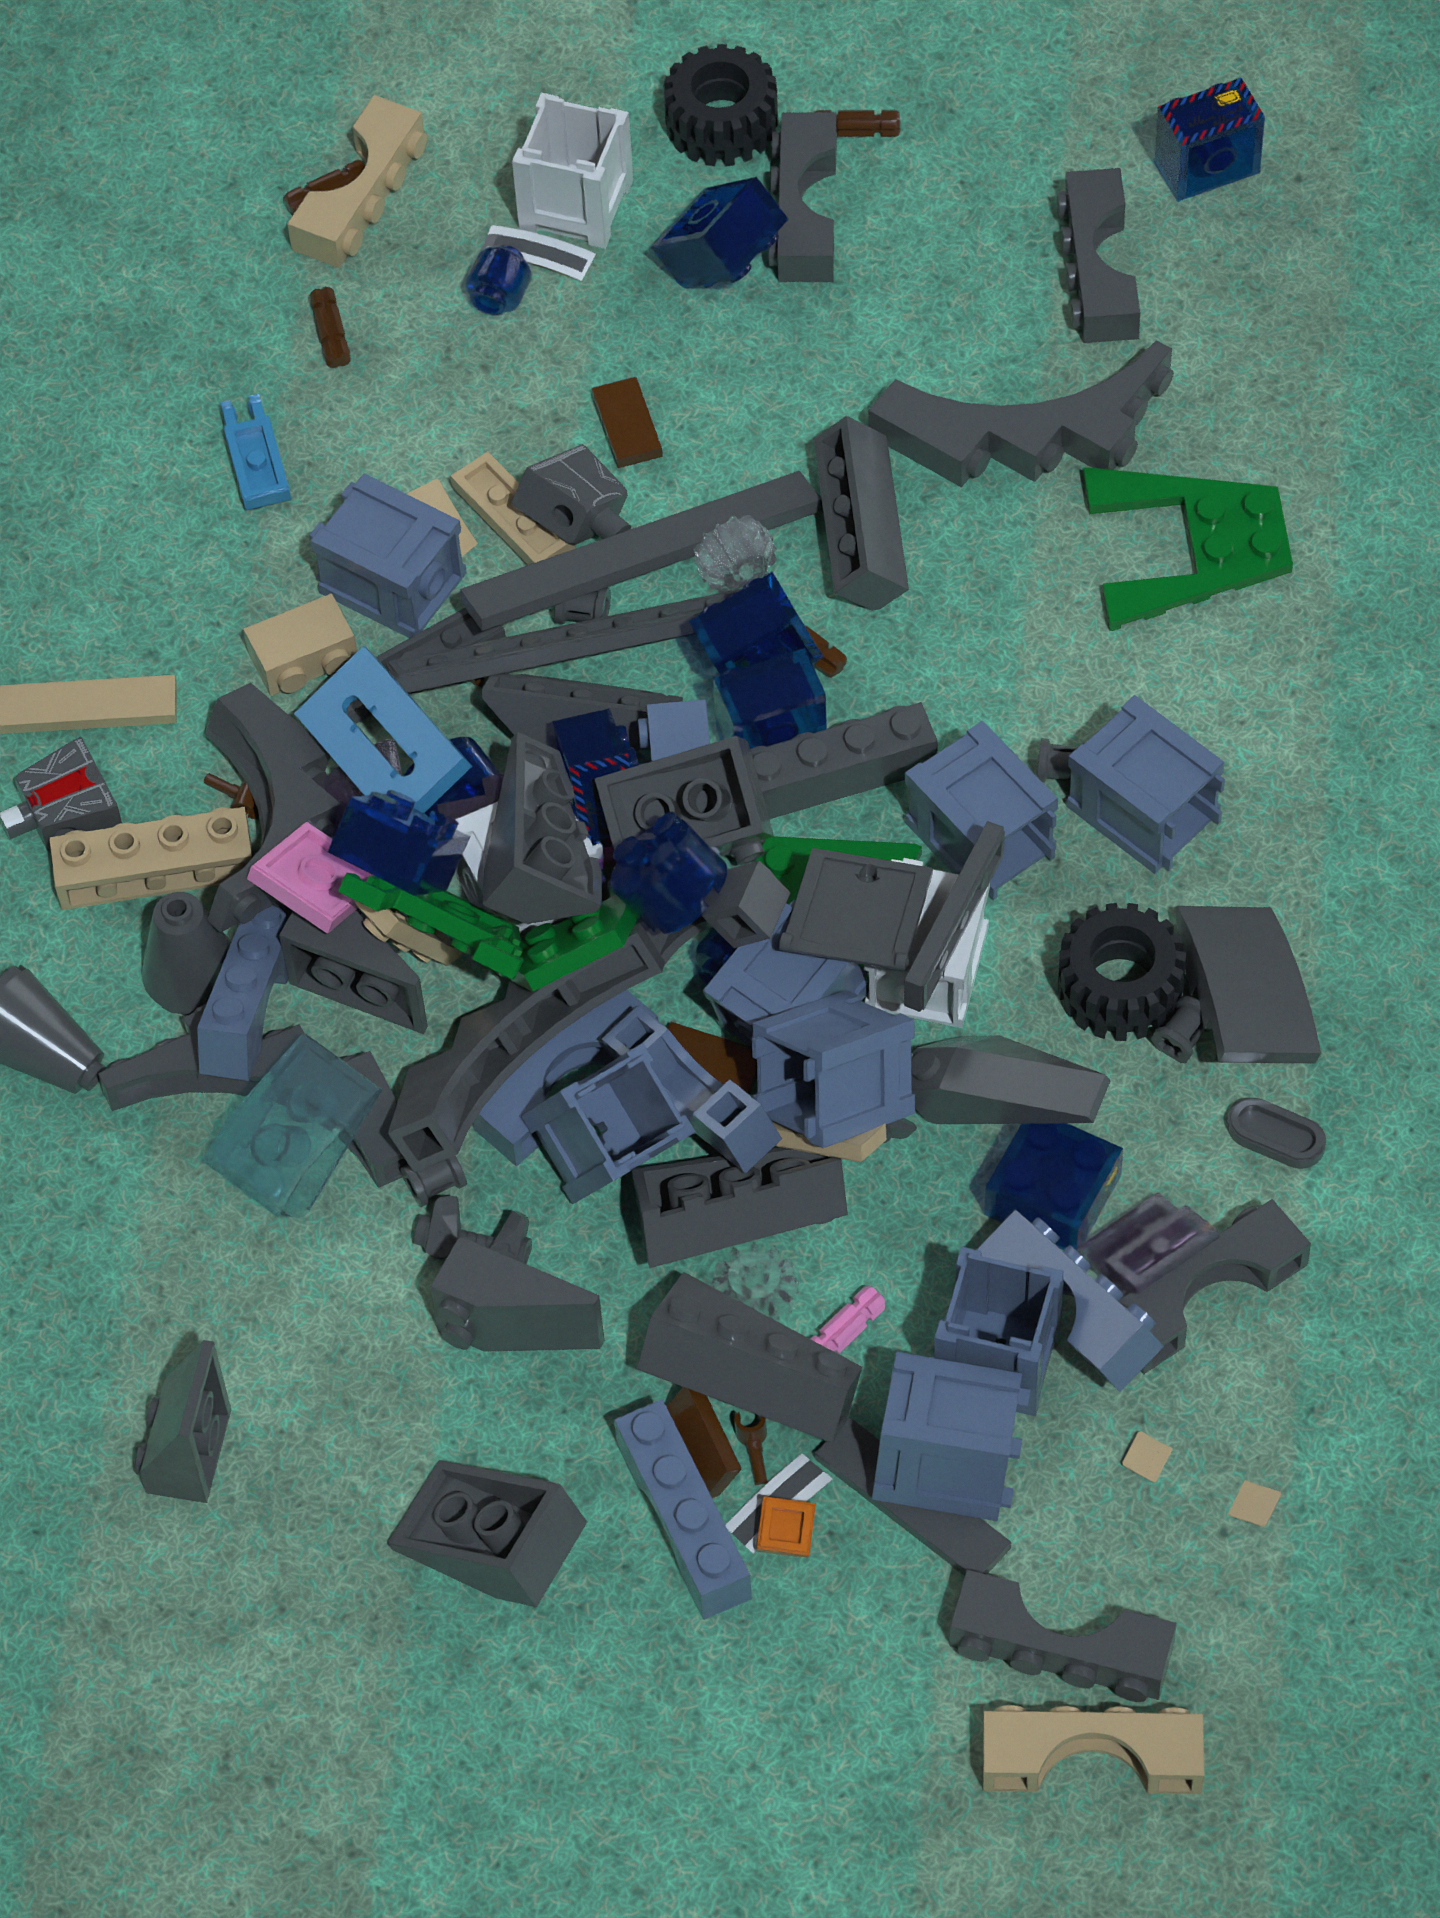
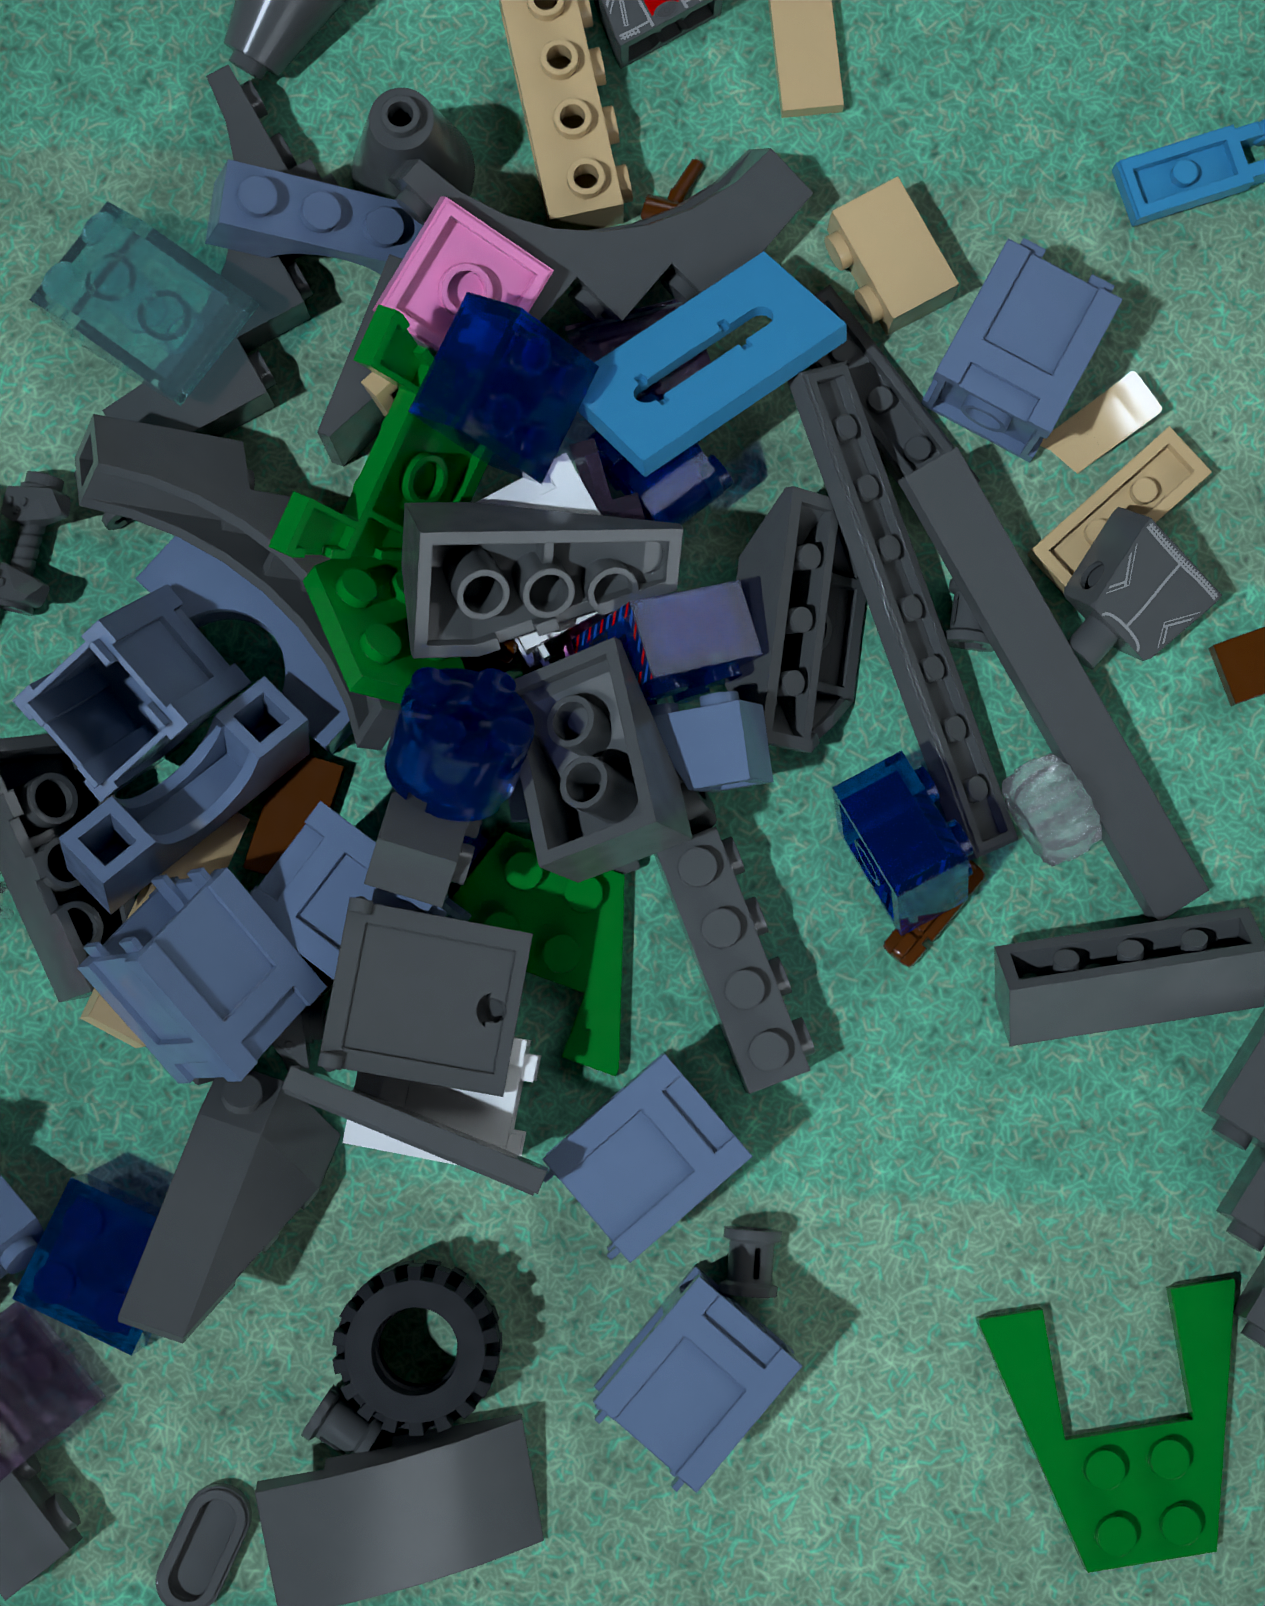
camera: 80 degrees right, 25 degrees up
(770, 700) = (796, 866): clear blue brick -> none

